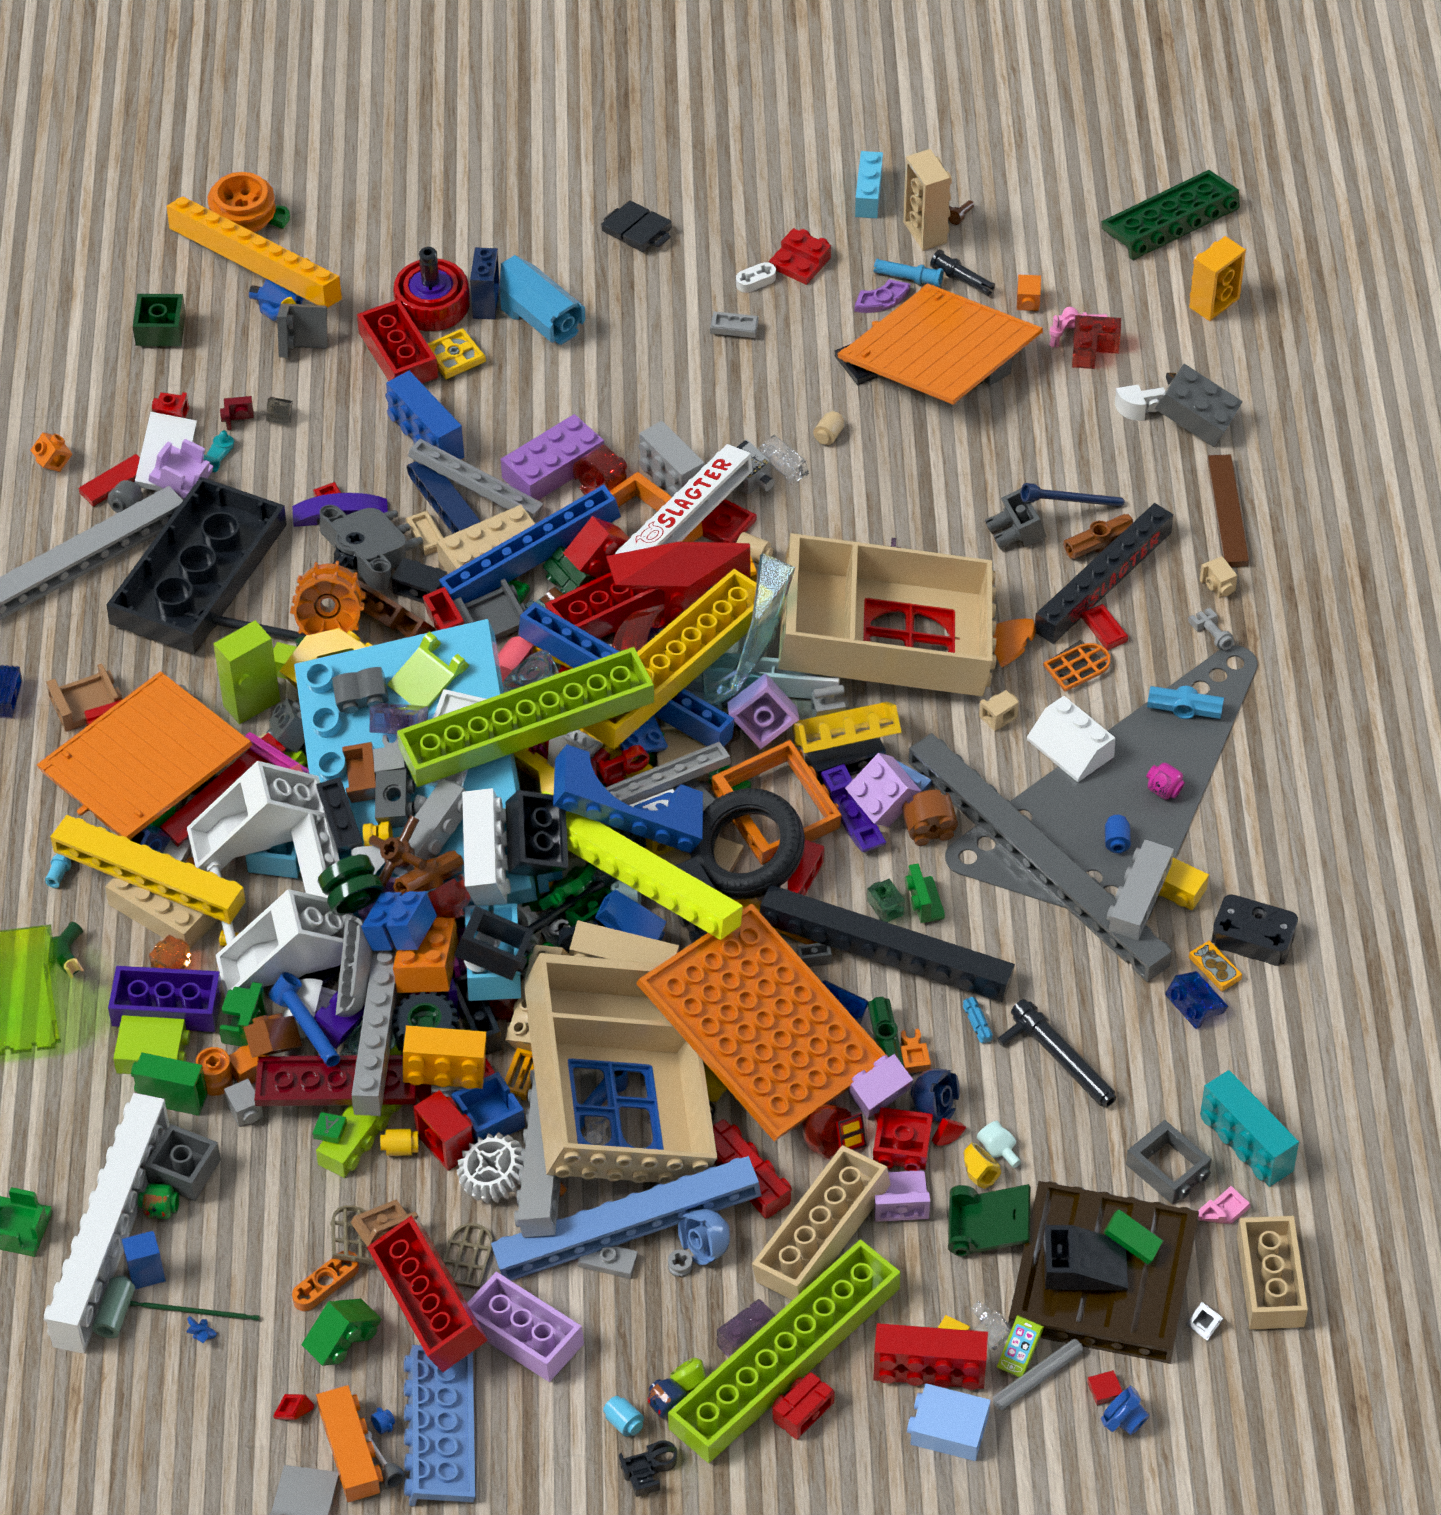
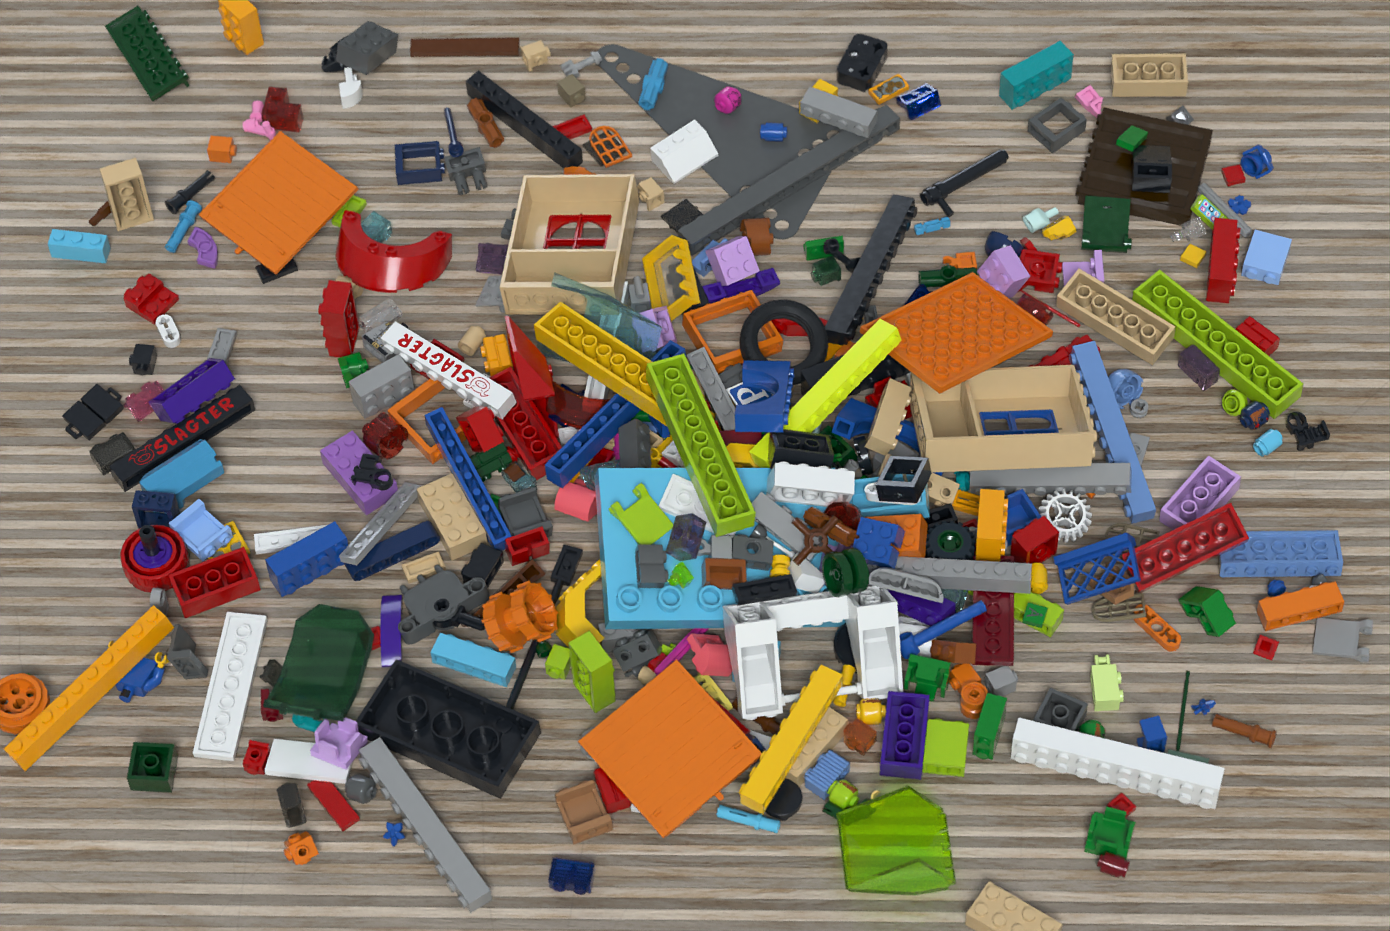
camera: 85 degrees left, 5 degrees up
(58, 1239) = (1122, 803): none -> red tile
(70, 532) = (394, 833): none -> blue plant
(87, 886) = (785, 801): none -> black tile
(89, 942) = (843, 794): none -> lime head
(102, 435) = (291, 804): none -> clear smoke brick
(120, 926) = (827, 770): none -> medium blue brick
(157, 1386) = (1254, 732): none -> dark orange pin
(204, 959) = (870, 711): none -> yellow head
(237, 1216) = (1105, 684): none -> yellowish green brick
(266, 377) = (230, 686): none -> white plate
(267, 444) = (323, 664): none -> clear green windscreen
(278, 600) = (473, 659): none -> medium azure brick
(352, 725) = (680, 576): none -> clear neon green tile
(363, 301) = (159, 600): none -> light grey piece
(419, 1194) = (1097, 552): none -> blue fence
(466, 325) = (201, 530): none -> light blue panel
(466, 414) = (279, 540): none -> white tile
(530, 450) = (369, 470): none -> black piece
(577, 246) = (108, 452): none -> clear smoke brick
(603, 304) = (200, 425): none -> black brick
(651, 267) = (139, 403): none -> clear pink bracket
(657, 296) = (192, 390): none -> dark purple brick
(704, 441) = (352, 366): none -> green cylinder
(709, 258) = (143, 359): none -> black brick
(752, 402) = (339, 318): none -> red brick
(845, 459) = (388, 266): none -> red windscreen
(905, 886) = (831, 247): none -> black bar
(910, 440) = (377, 227): none -> clear light blue brick
(947, 421) = (353, 204): none -> lime tile
(973, 749) = (681, 215): none -> clear smoke piece
(1035, 457) = (419, 150): none -> dark blue window
(1051, 1395) = (1239, 205): none -> blue plant
(1163, 618) = (571, 90): none -> dark tan brick

